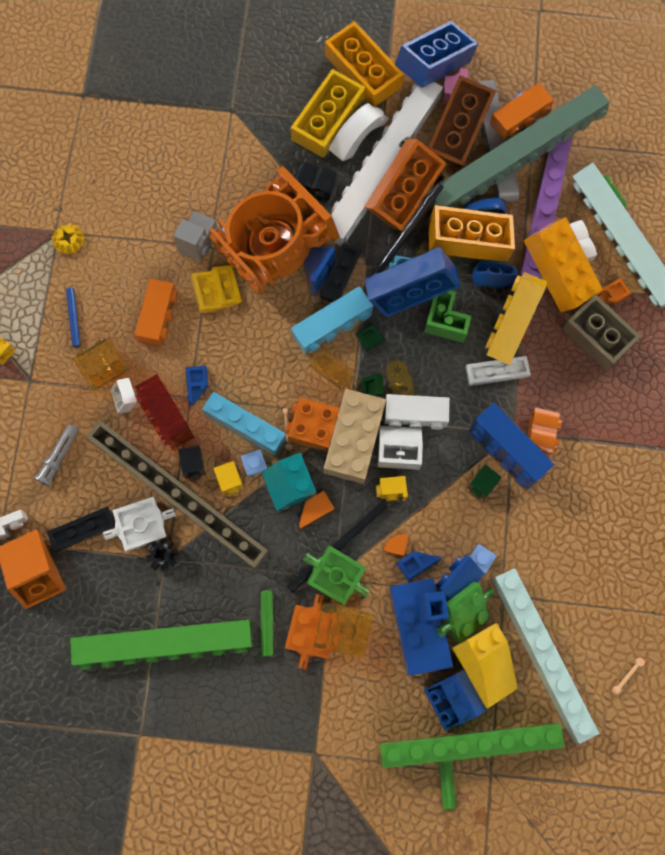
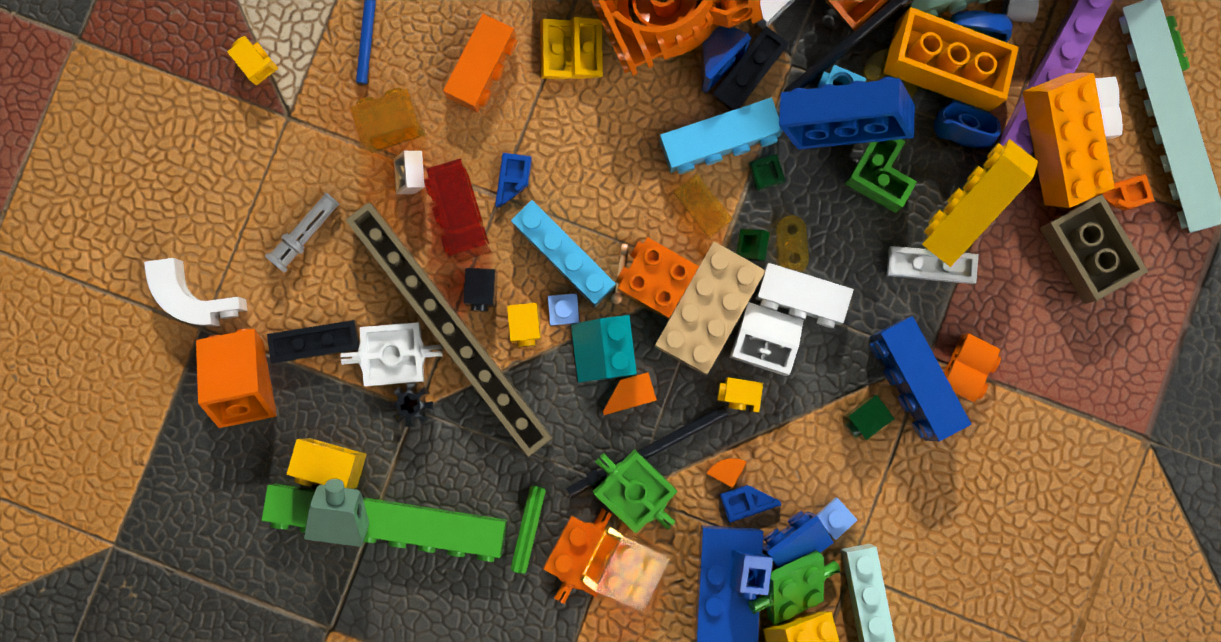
camera: 20 degrees right, 10 degrees up
(110, 611) = (320, 461): none -> yellow brick
(126, 643) = (337, 515): none -> sand green torso

